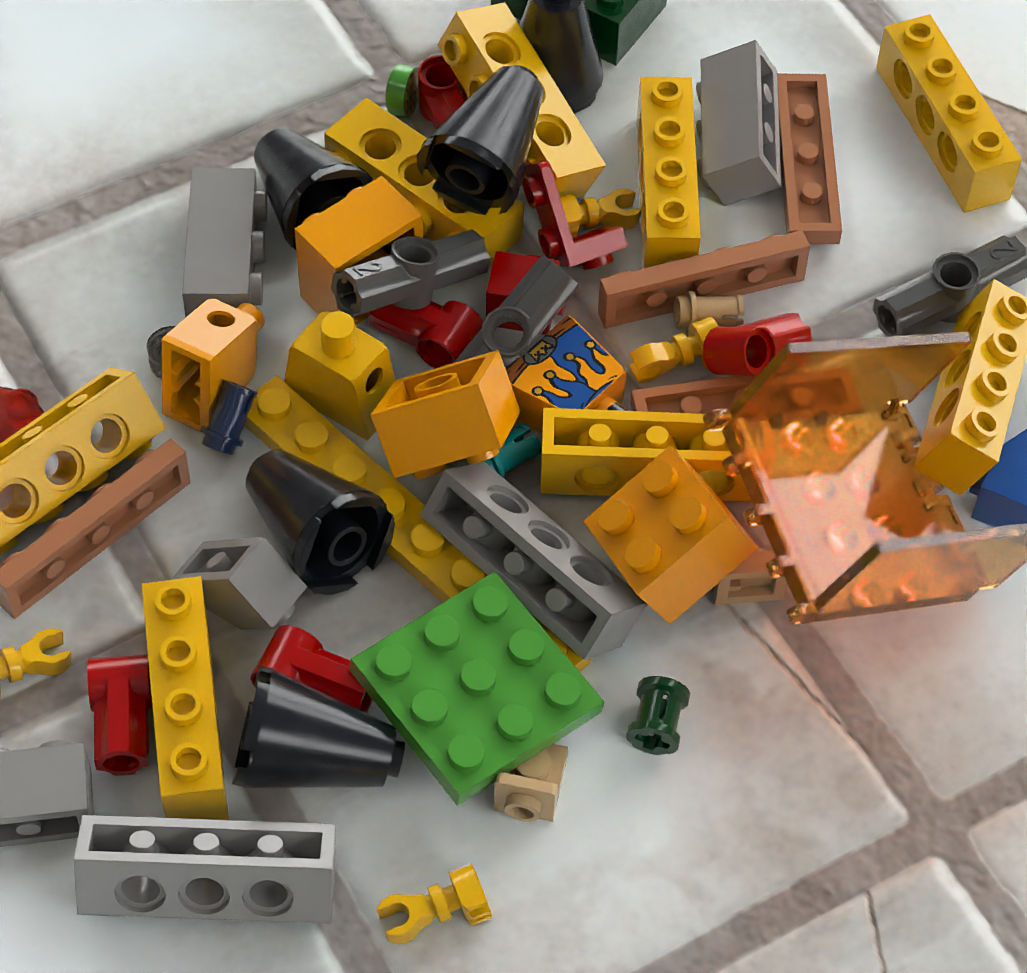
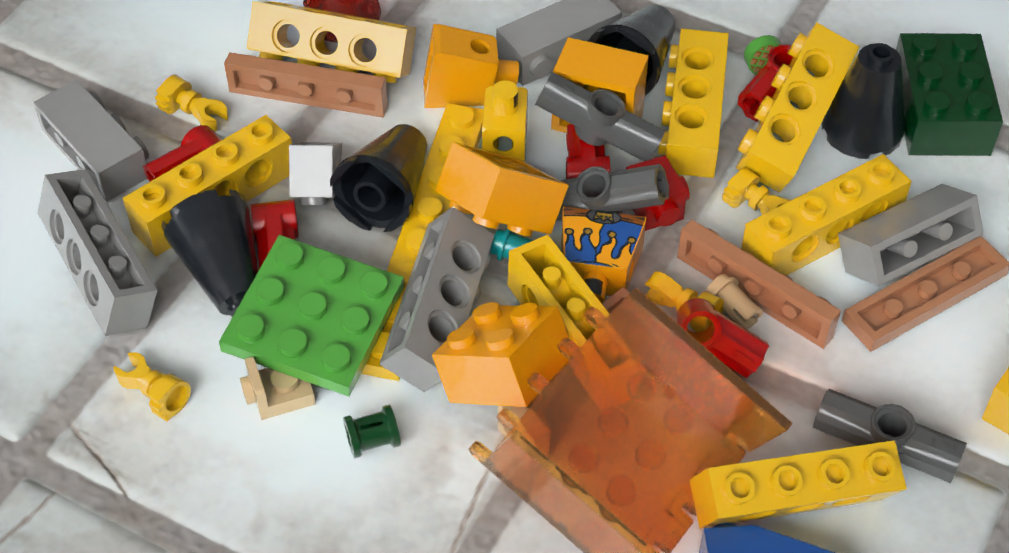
camera: 60 degrees right, 5 degrees down
(228, 418) = (423, 106): dark blue pin -> none
(485, 143) = (729, 88): black cone -> none
(555, 239) = (710, 183): red bracket -> none

